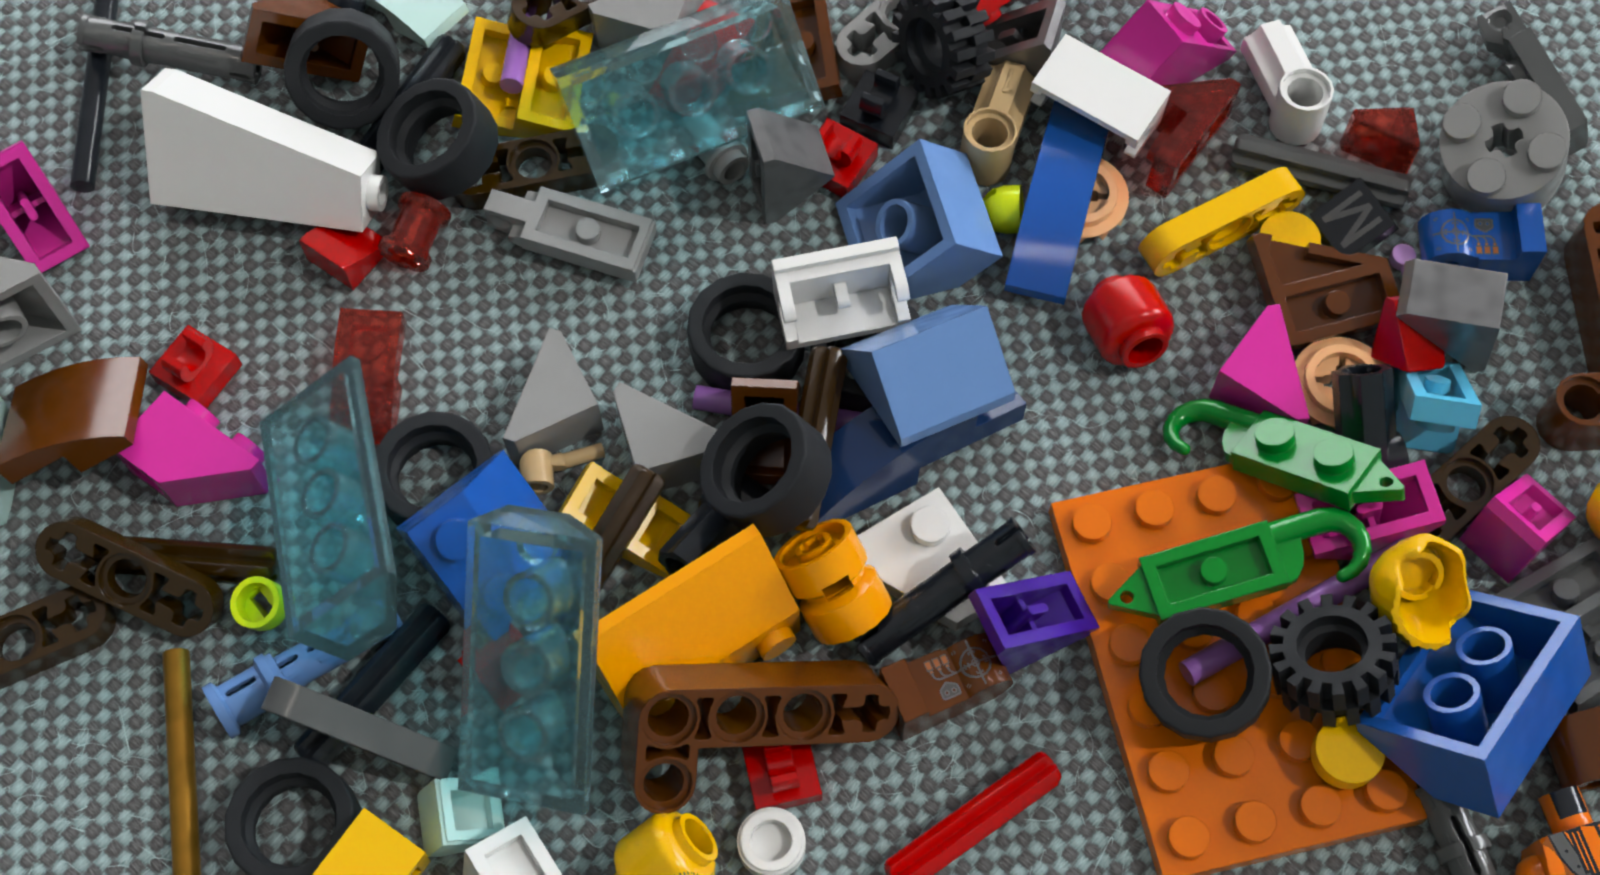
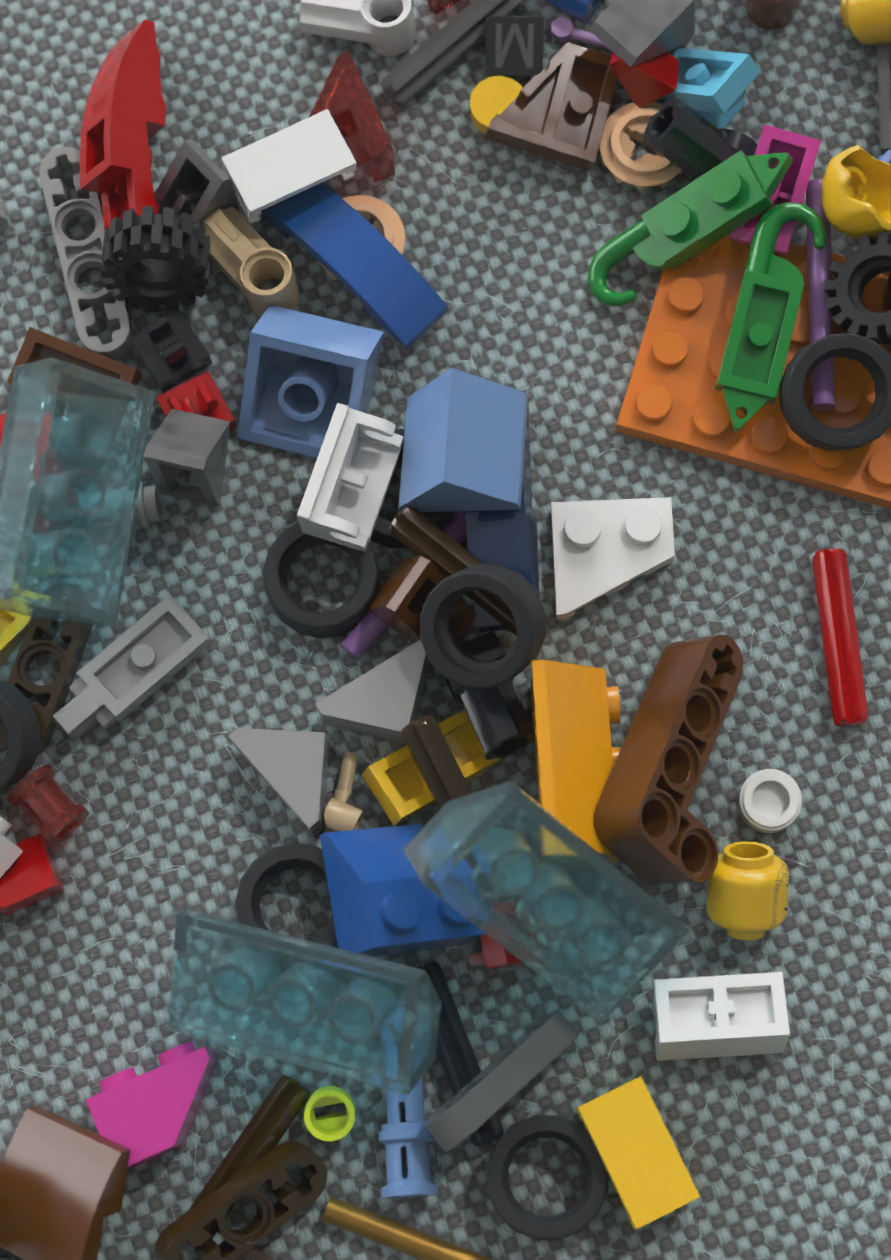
camera: 55 degrees left, 10 degrees up
(195, 367) = (60, 1065): red tile -> none
(377, 341) = (146, 905): clear red slope -> none
(455, 818) = (610, 1046): light aqua slope -> none
(782, 775) = (727, 765): red tile -> none
(836, 586) = (597, 628): light orange wheel -> none
(945, 683) = (720, 589): reddish brown leg -> none
(946, 589) = (651, 548): black pin -> none
(1005, 208) = (334, 302): neon yellow hinge -> none
(1033, 617) = (709, 493): dark purple slope -> none
(1128, 320) = (497, 269): red head -> none
(1170, 43) = (268, 84): dark pink slope -> none
(1220, 221) = (452, 145): yellow beam -> none
(1263, 371) = (606, 196): dark pink slope -> none
(1471, 461) = (789, 87): dark brown beam -> none
(1516, 527) = (840, 93): dark pink slope -> none

